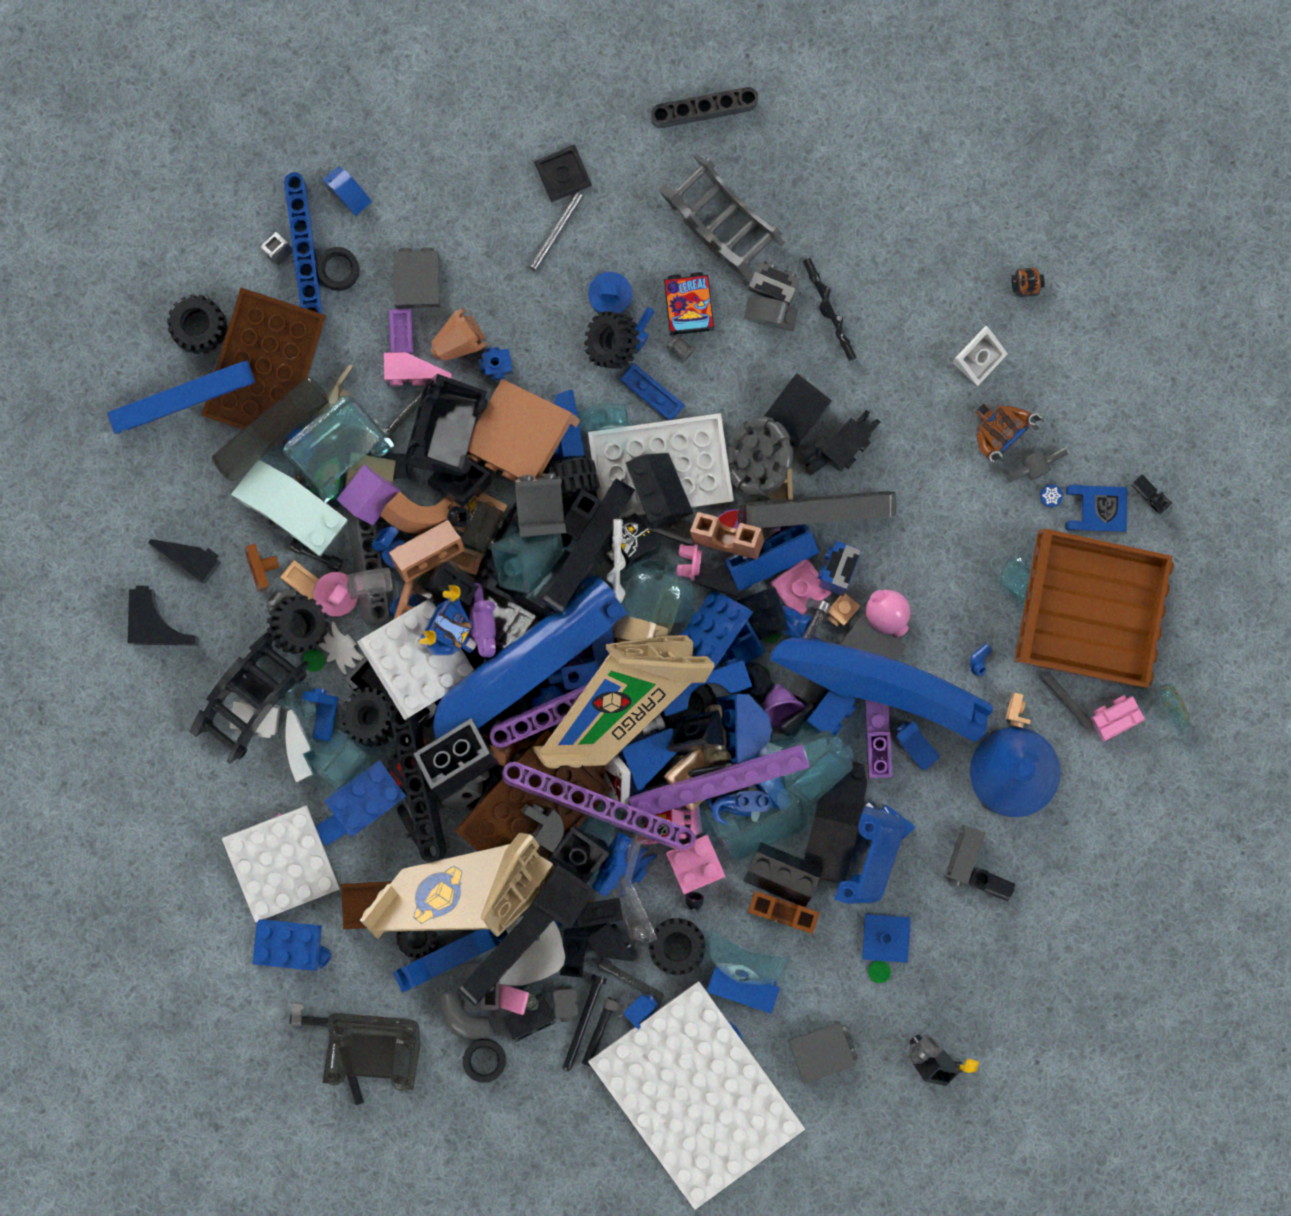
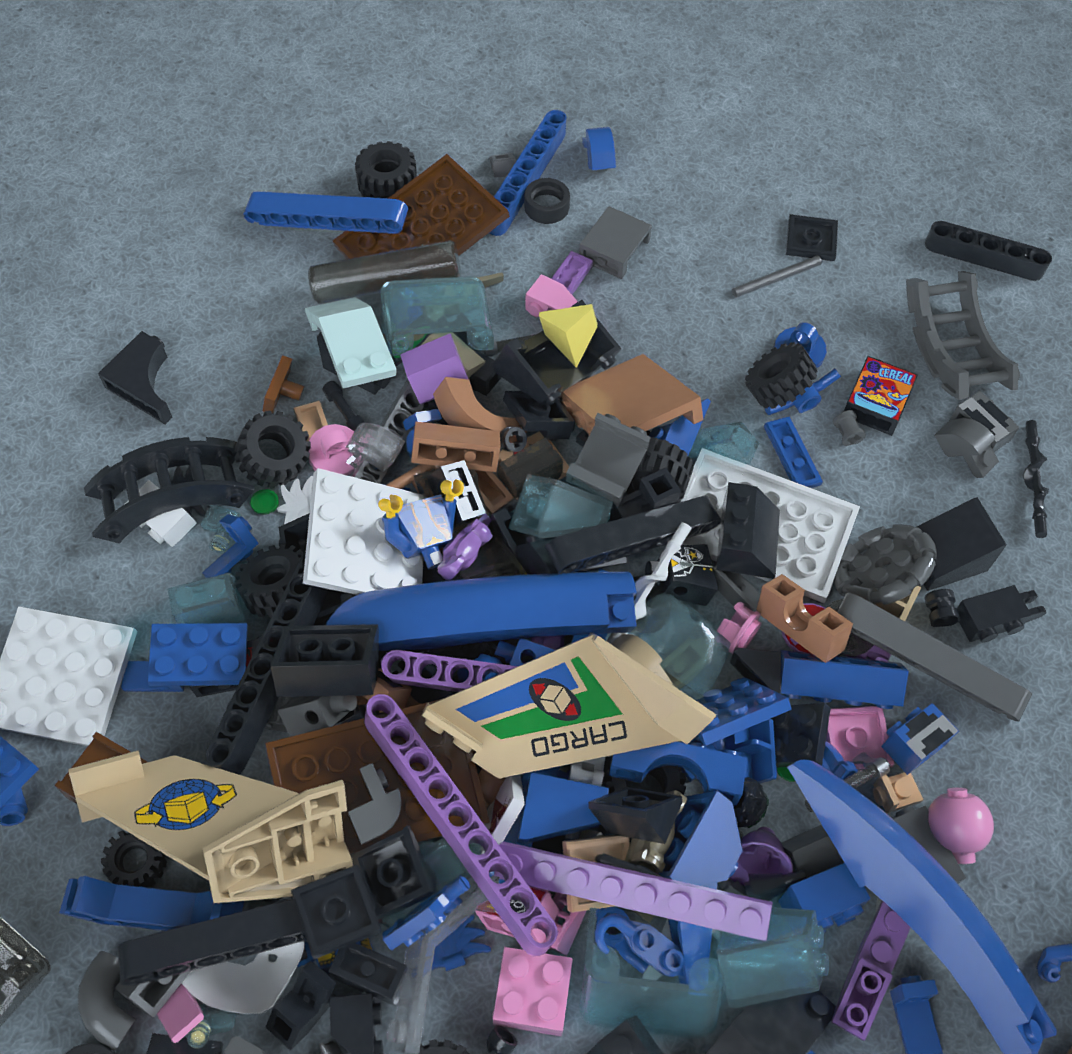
camera: 30 degrees right, 25 degrees down
(192, 559) = (224, 343): black slope -> none
(297, 746) = (176, 567): white slope -> none
(445, 404) = (570, 329): none -> light yellow slope
(458, 337) = (623, 301): nougat cone -> none
(496, 355) = (646, 340): blue brick -> none

